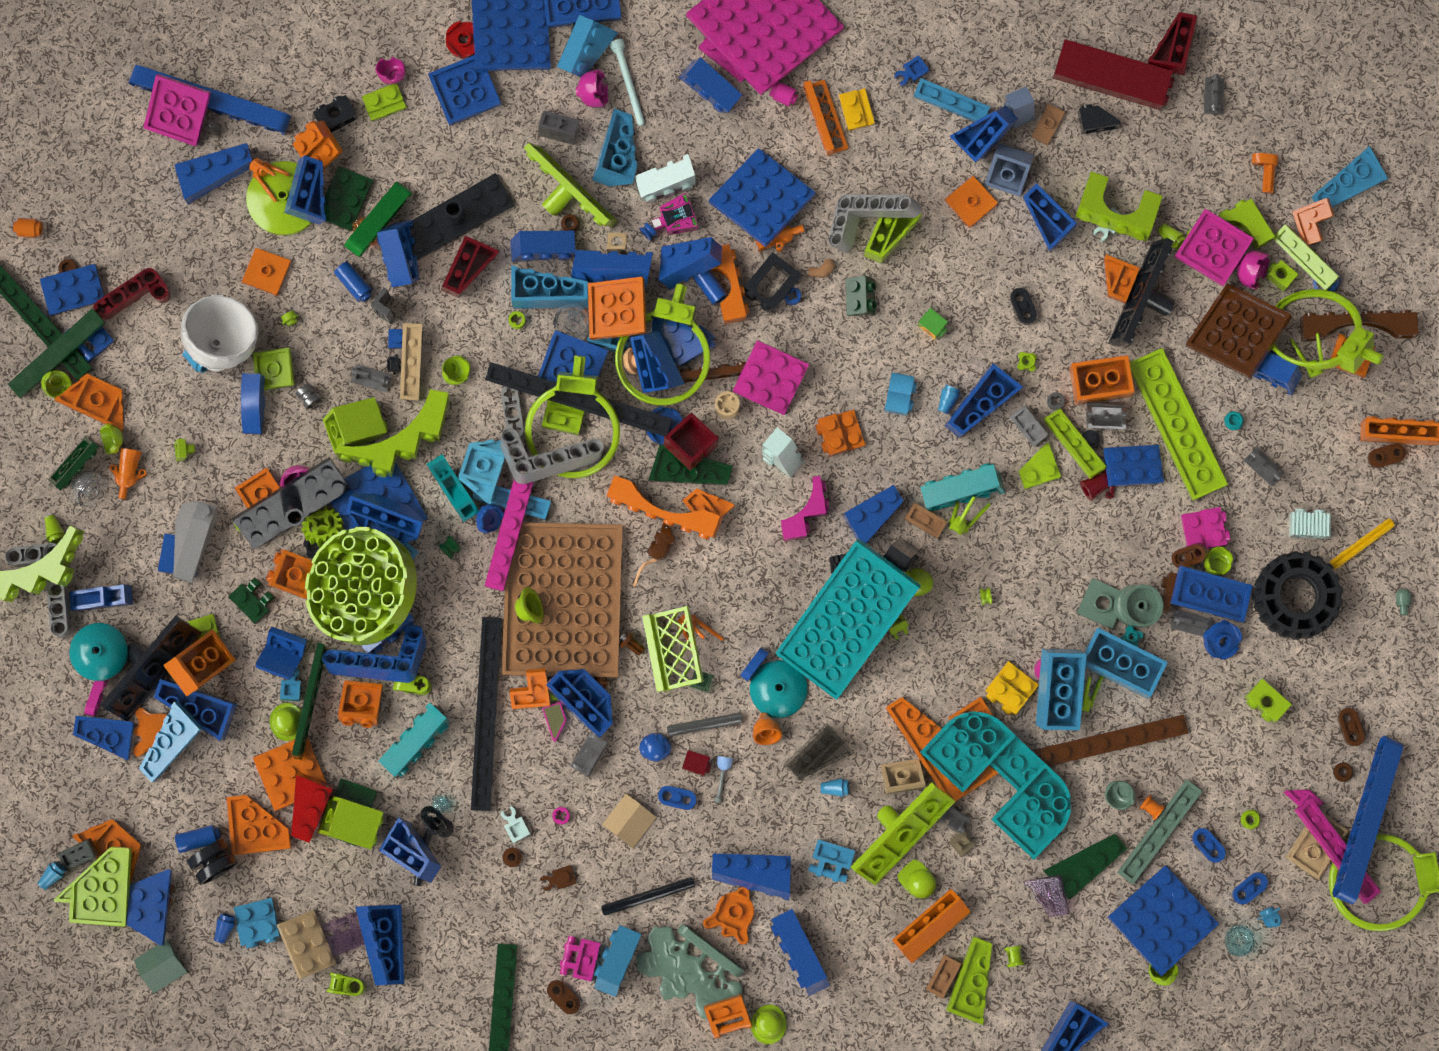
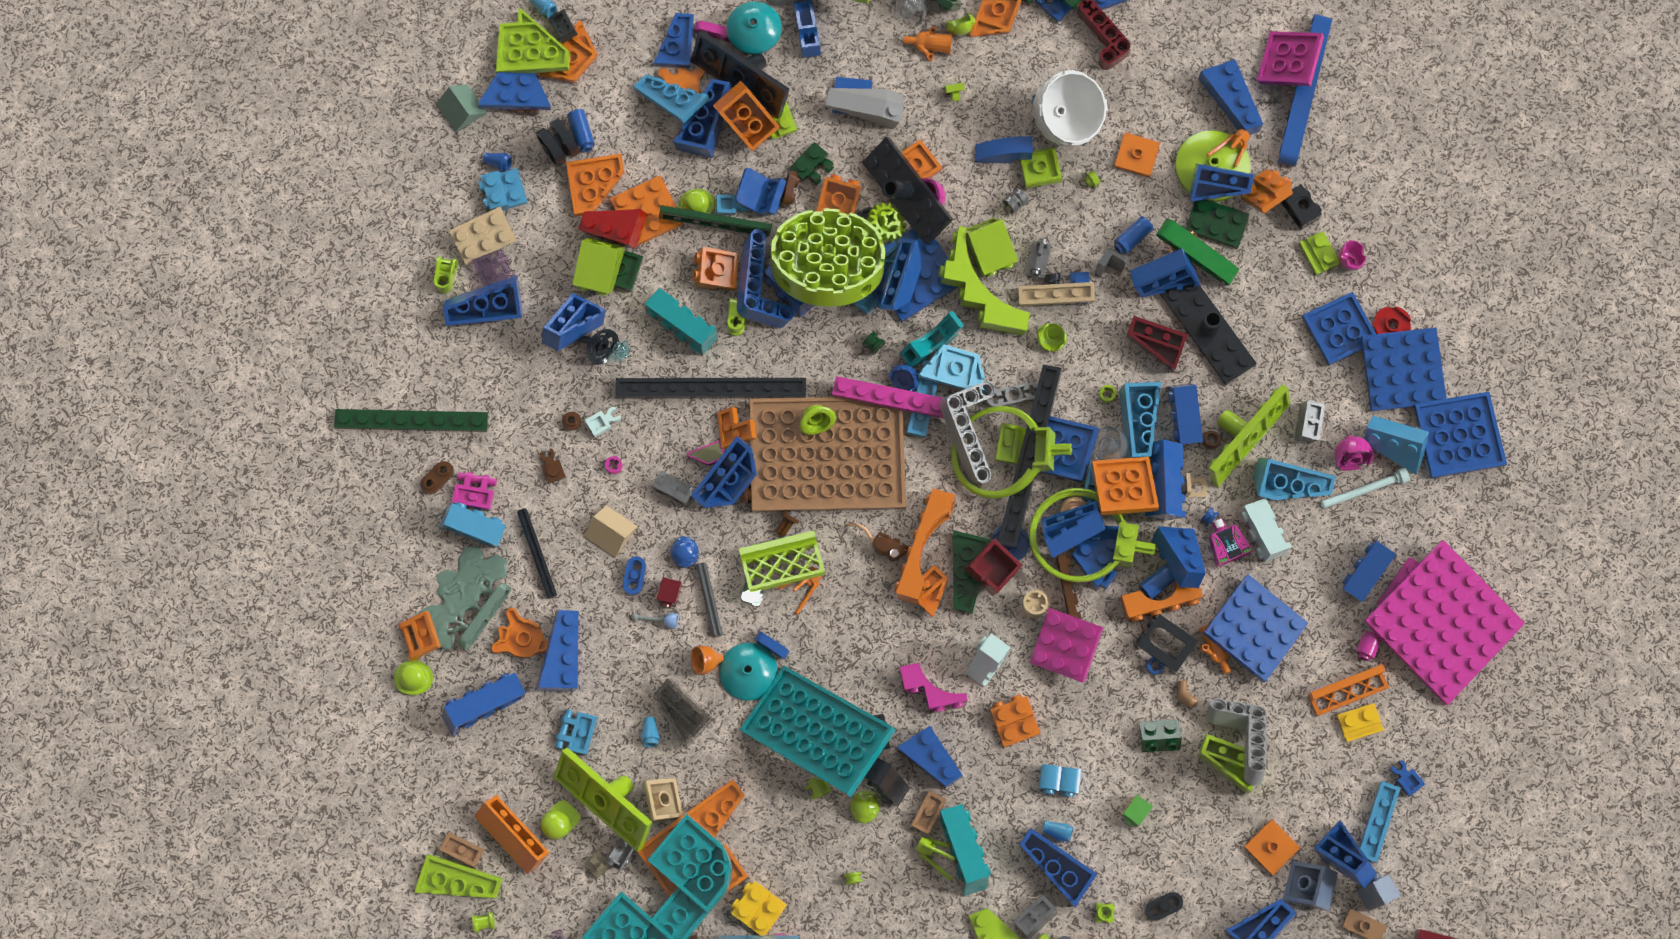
camera: 85 degrees right, 5 degrees down
(286, 625) = (791, 181): none -> reddish brown plate

